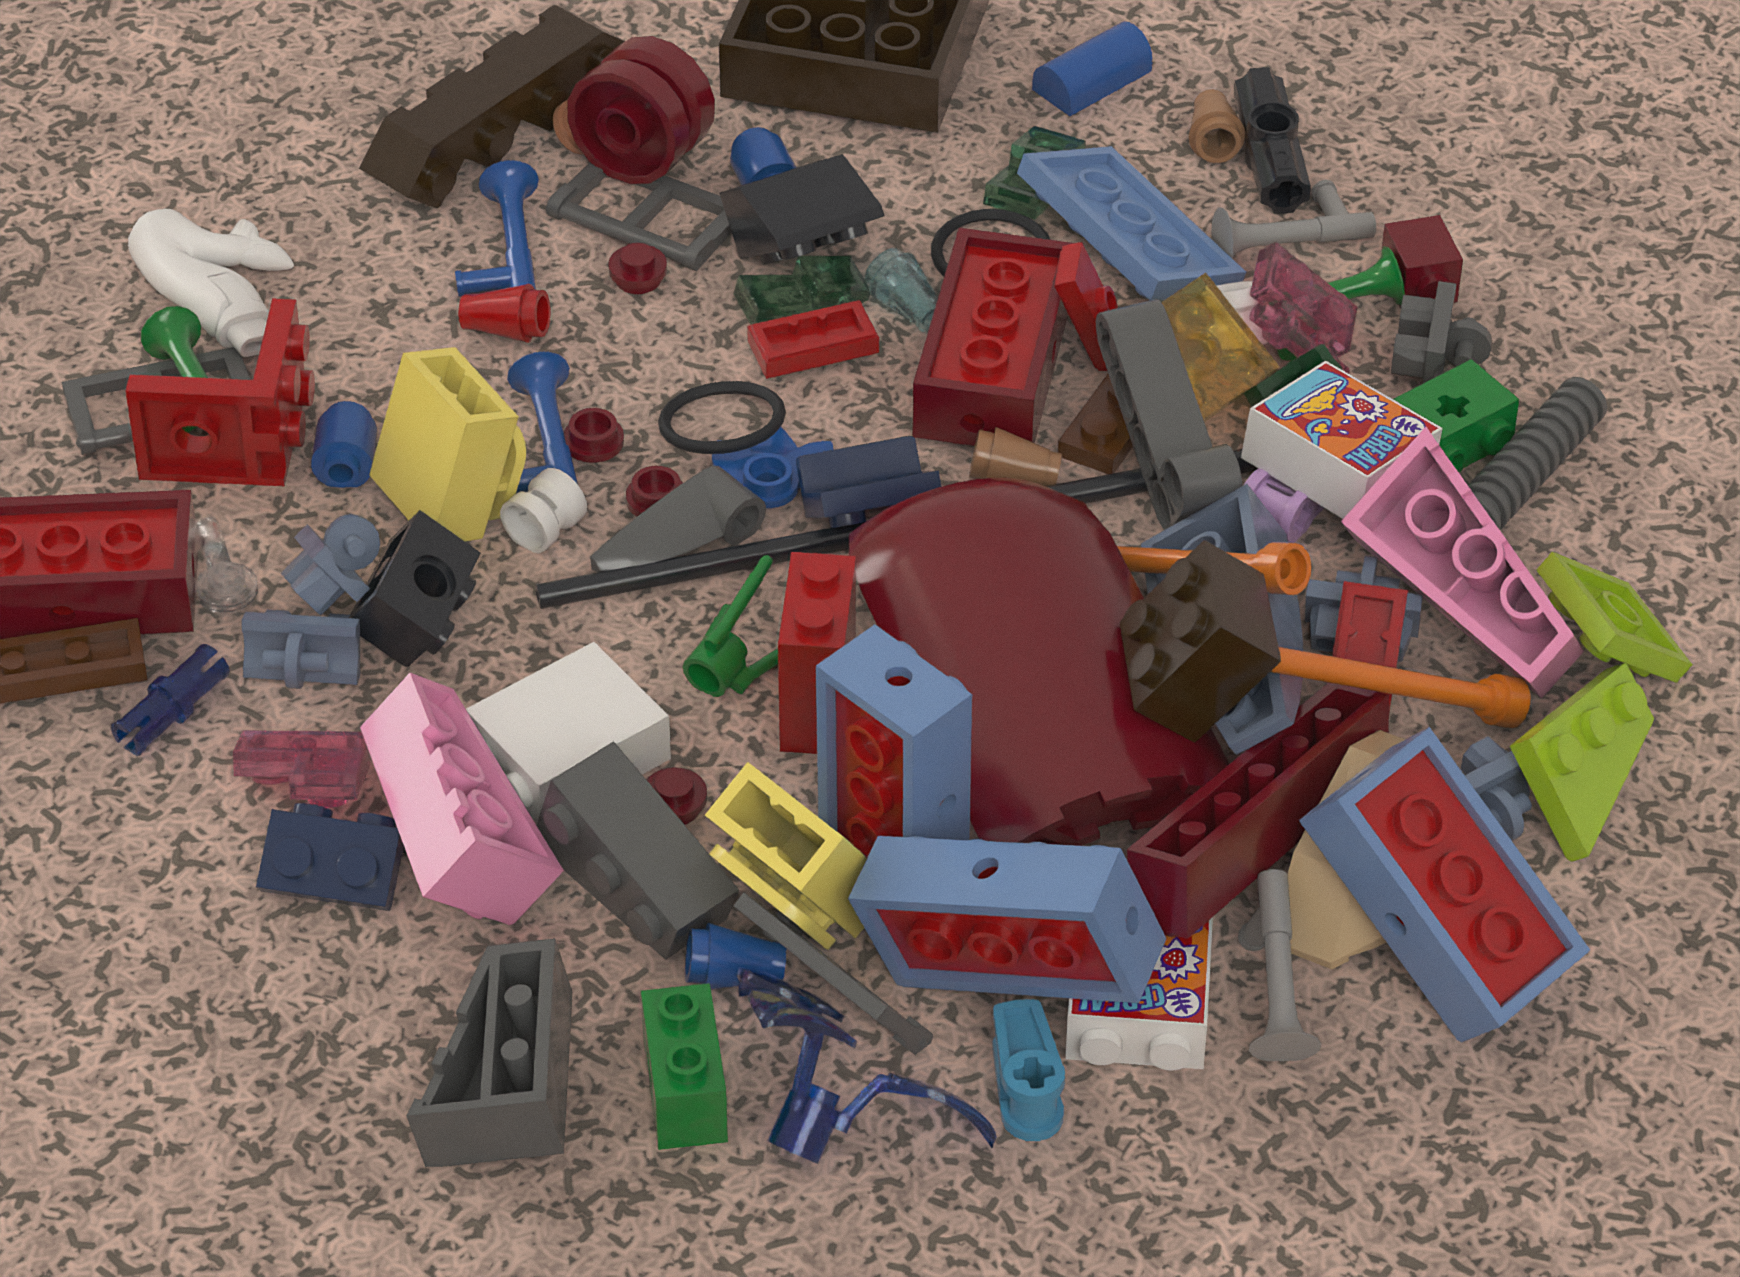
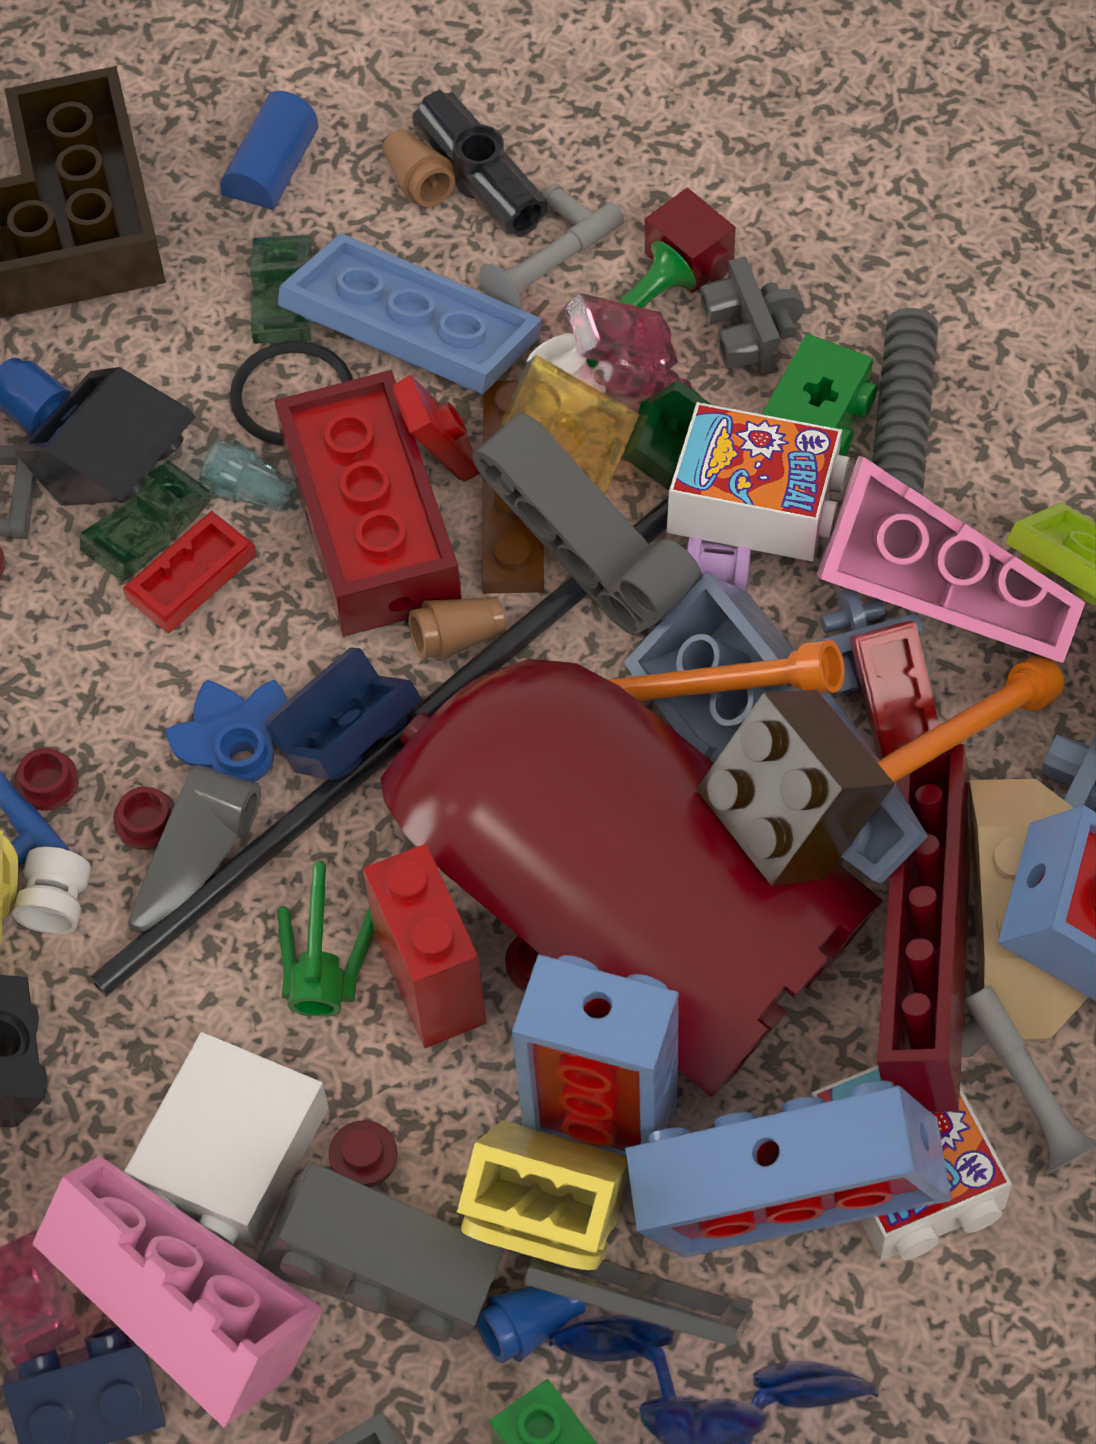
camera: 25 degrees left, 15 degrees up
(723, 446) = (172, 741): black tyre -> none
(1027, 1070) = (863, 1295): dark azure piece -> none

